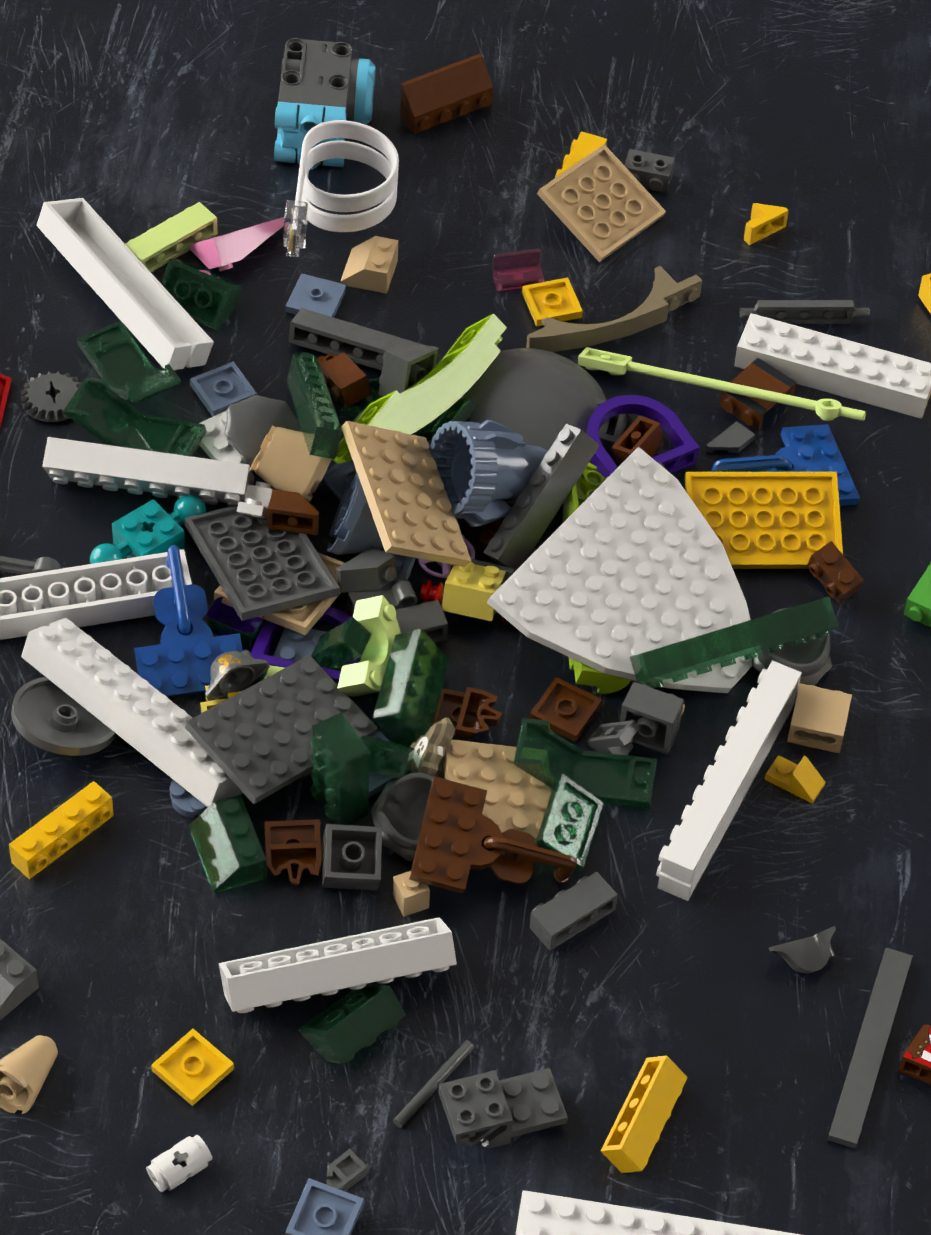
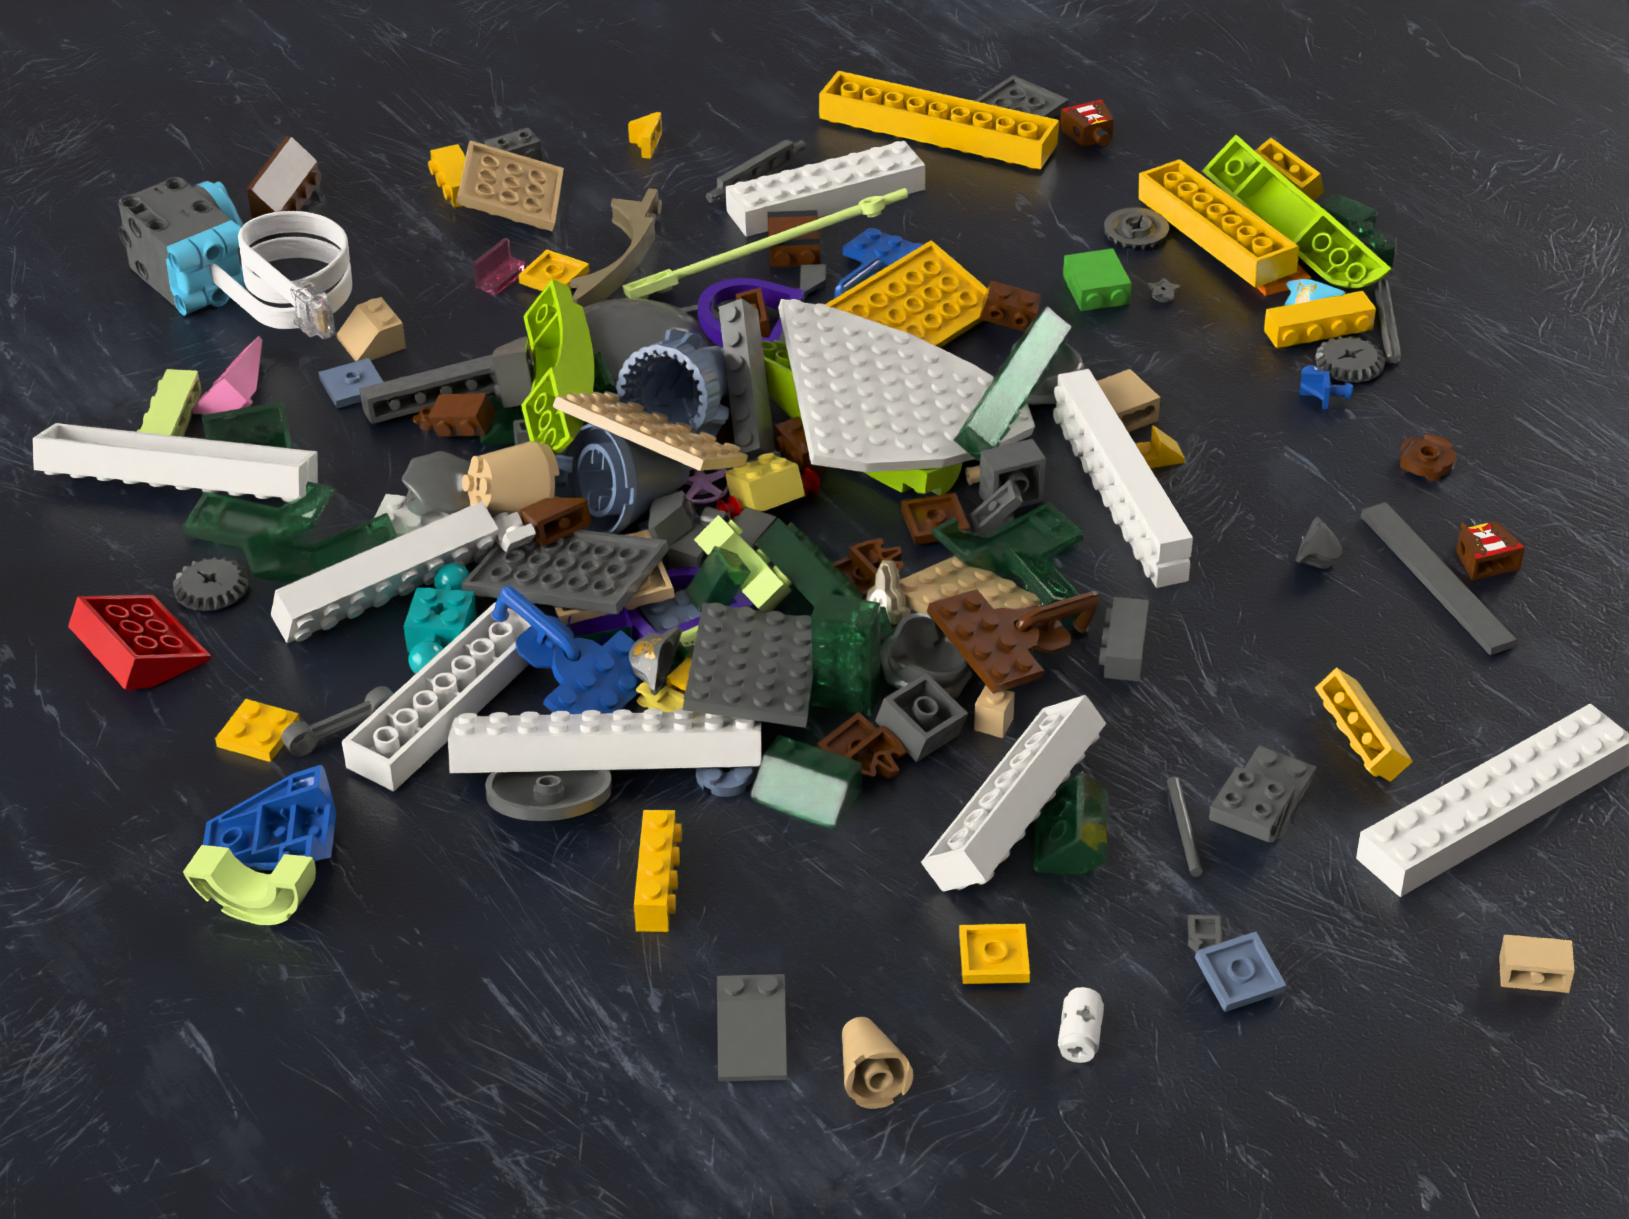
camera: 40 degrees left, 10 degrees down
(221, 388) = (362, 486): sand blue plate -> none
(314, 406) = (483, 427): clear green brick -> none

